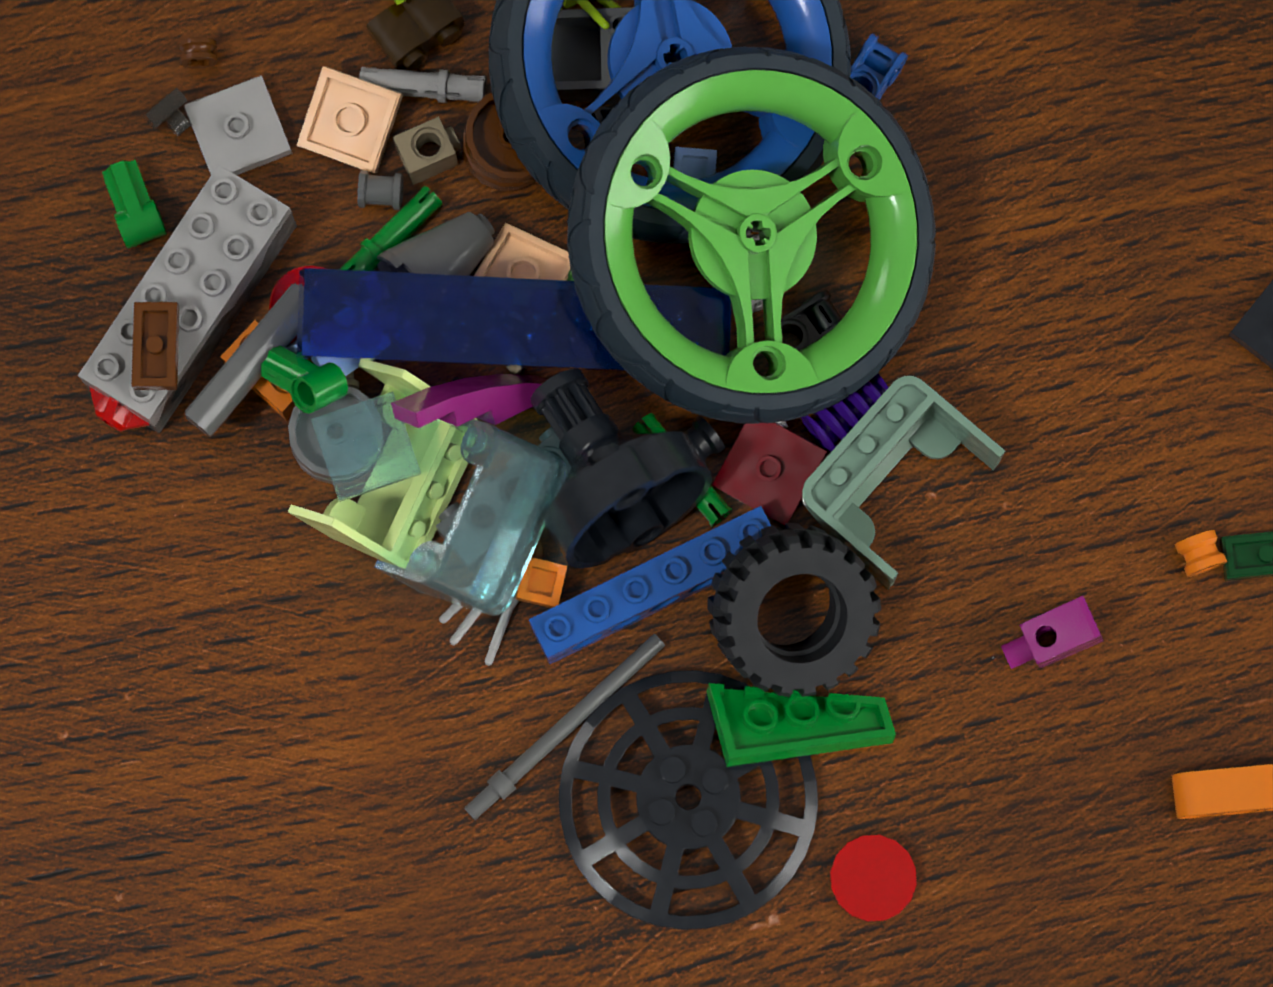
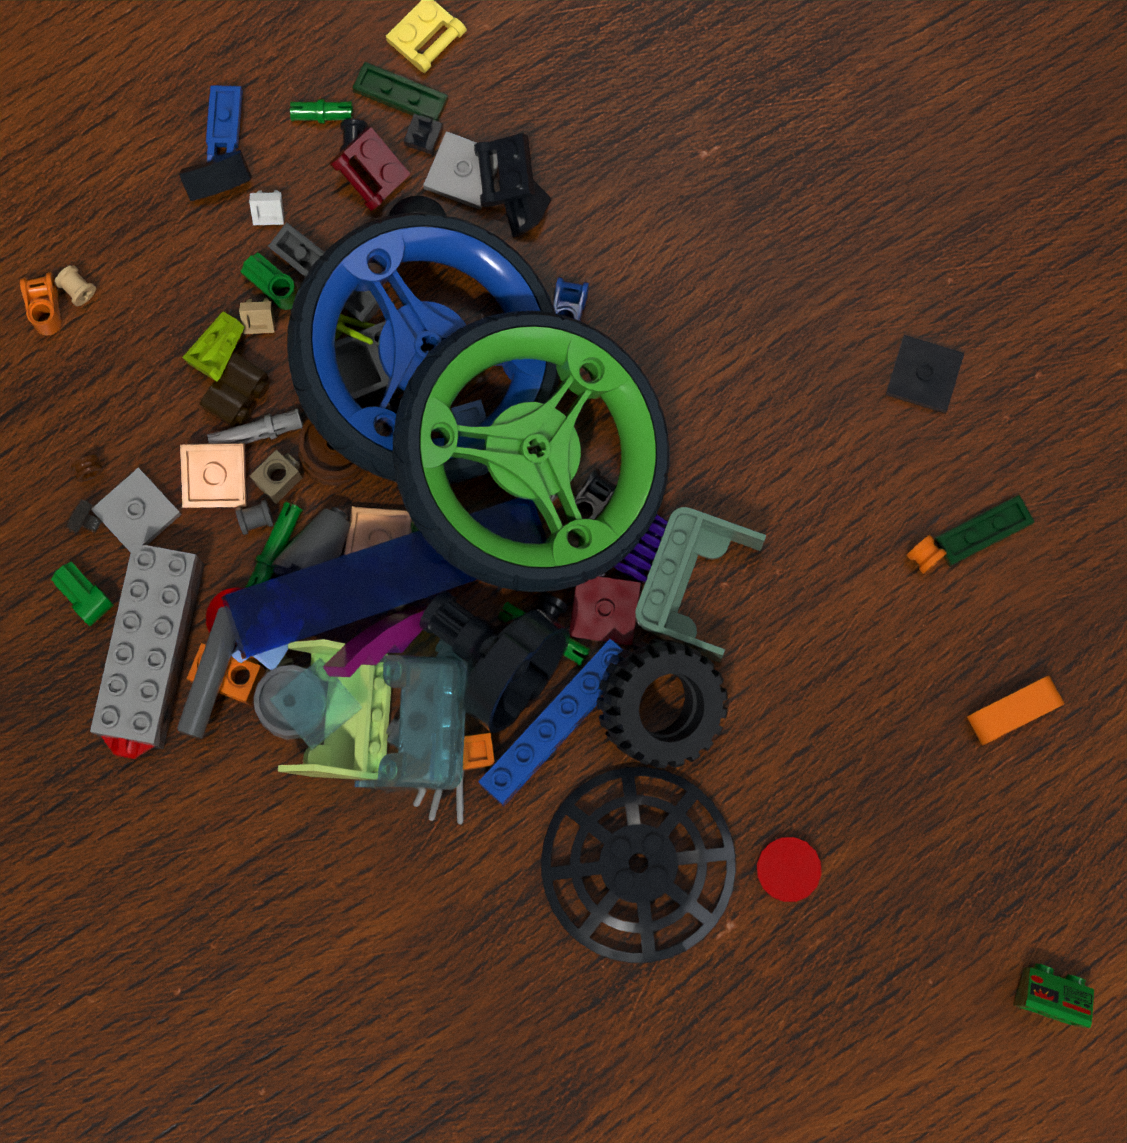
camera: 20 degrees left, 0 degrees up
(155, 346) = (138, 689): reddish brown plate -> none
(308, 384) = (258, 675): green piece -> none
(502, 783) = (503, 904): dark grey bar -> none
(771, 727) = (676, 792): green wing -> none
(1074, 633) = (859, 639): magenta torso -> none

